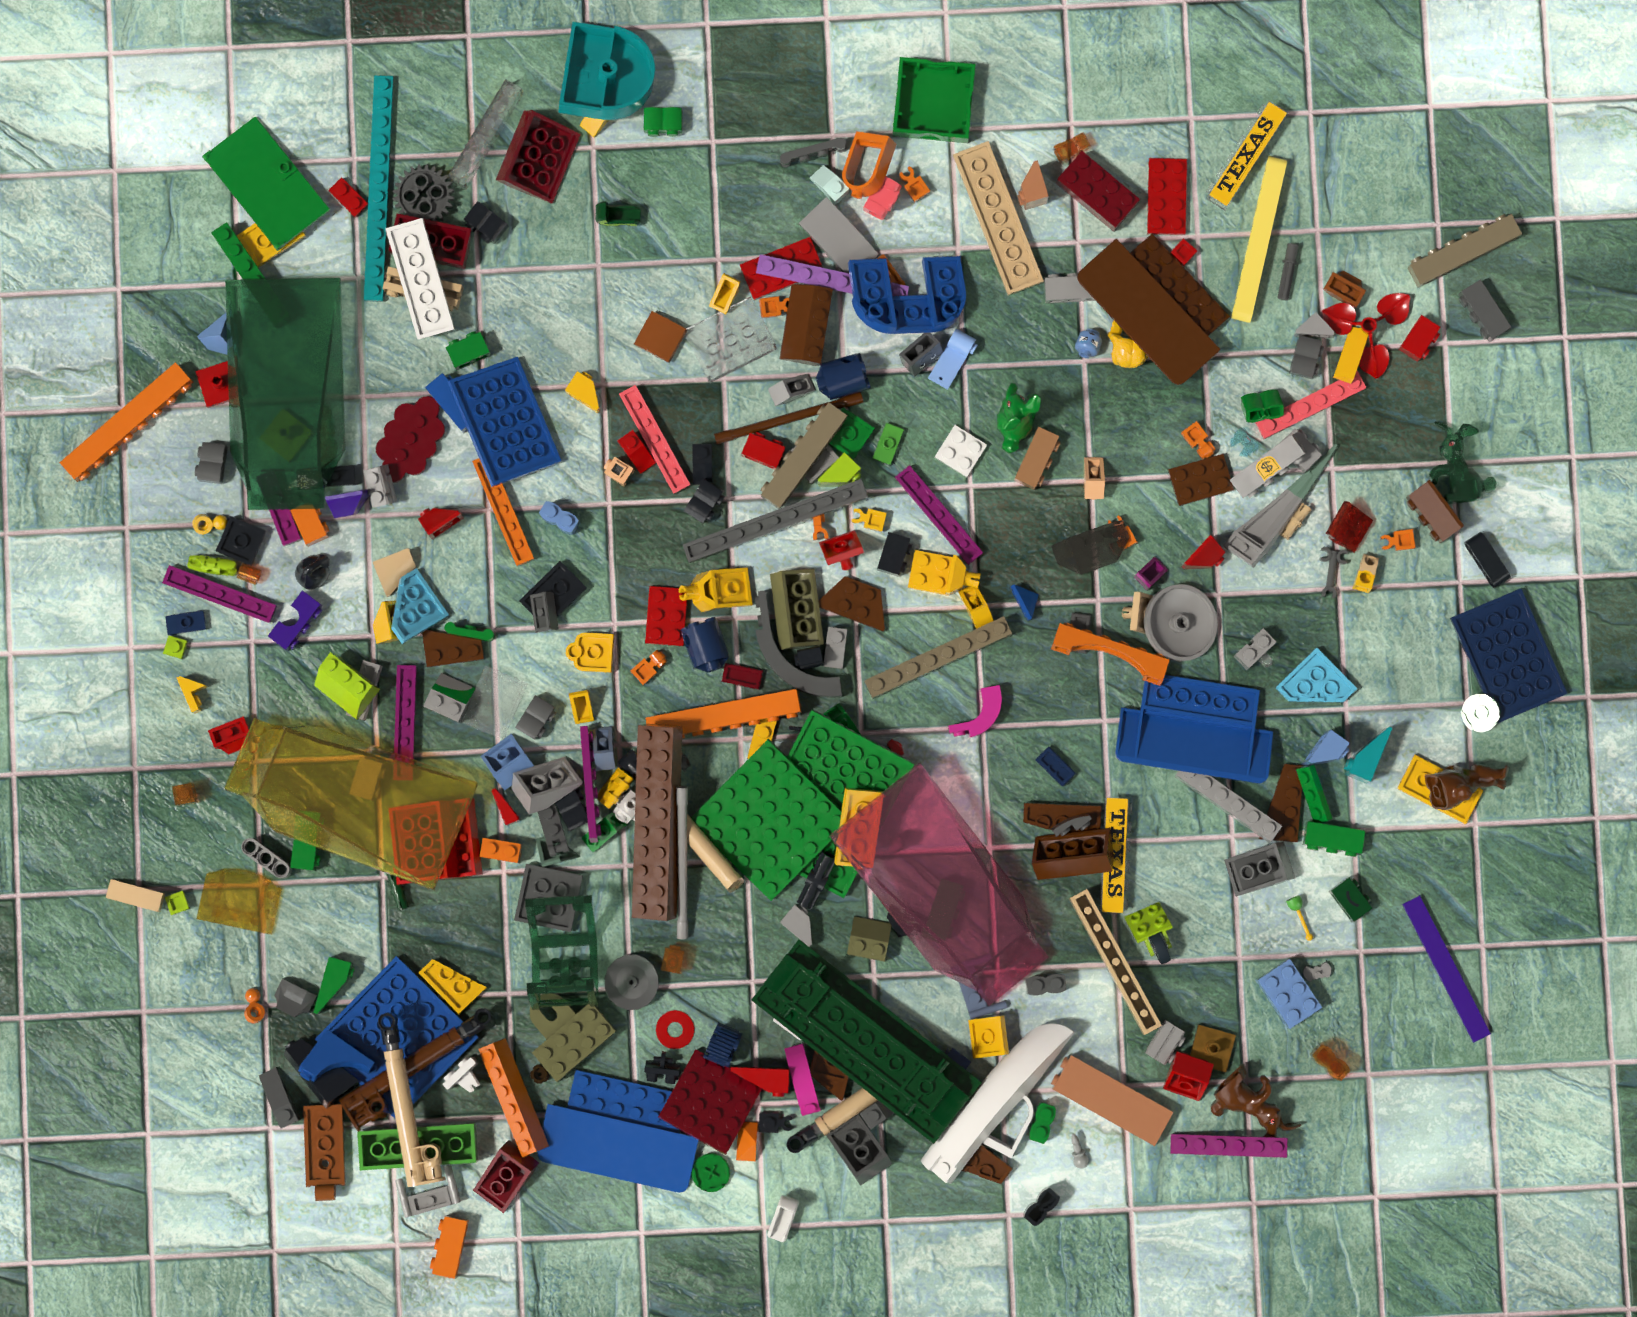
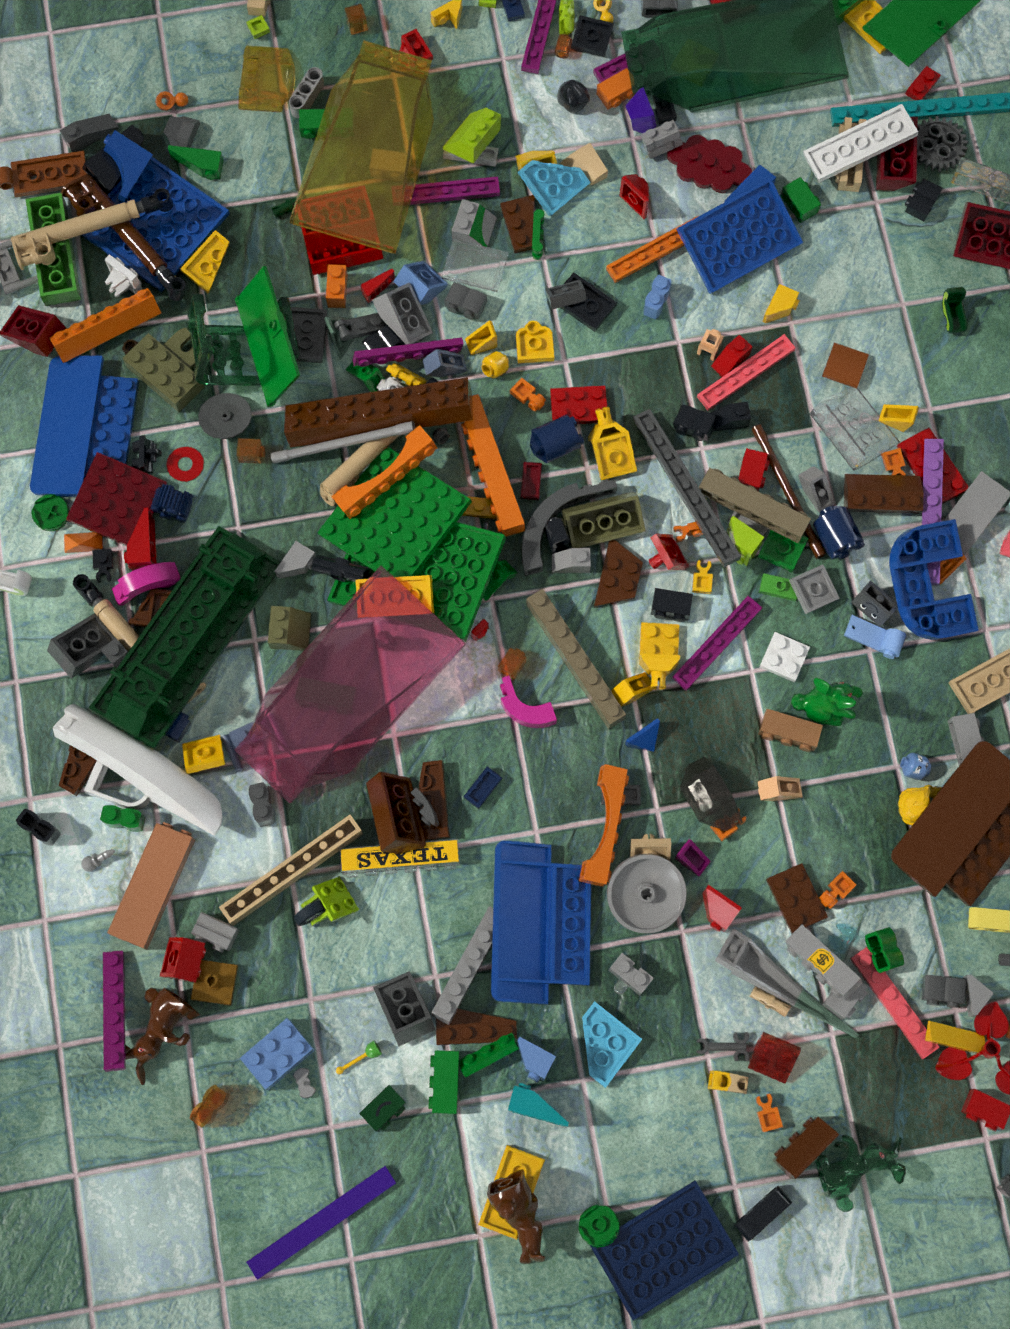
camera: 80 degrees right, 10 degrees down
(307, 609) = (537, 97): dark purple arch -> none
(559, 927) = (267, 337): none -> green door
(612, 696) = (495, 364): none -> yellow head
(703, 785) = (416, 449): none -> orange arch
(897, 410) = (814, 589): none -> light grey plate
(933, 720) = (512, 663): none -> clear orange brick

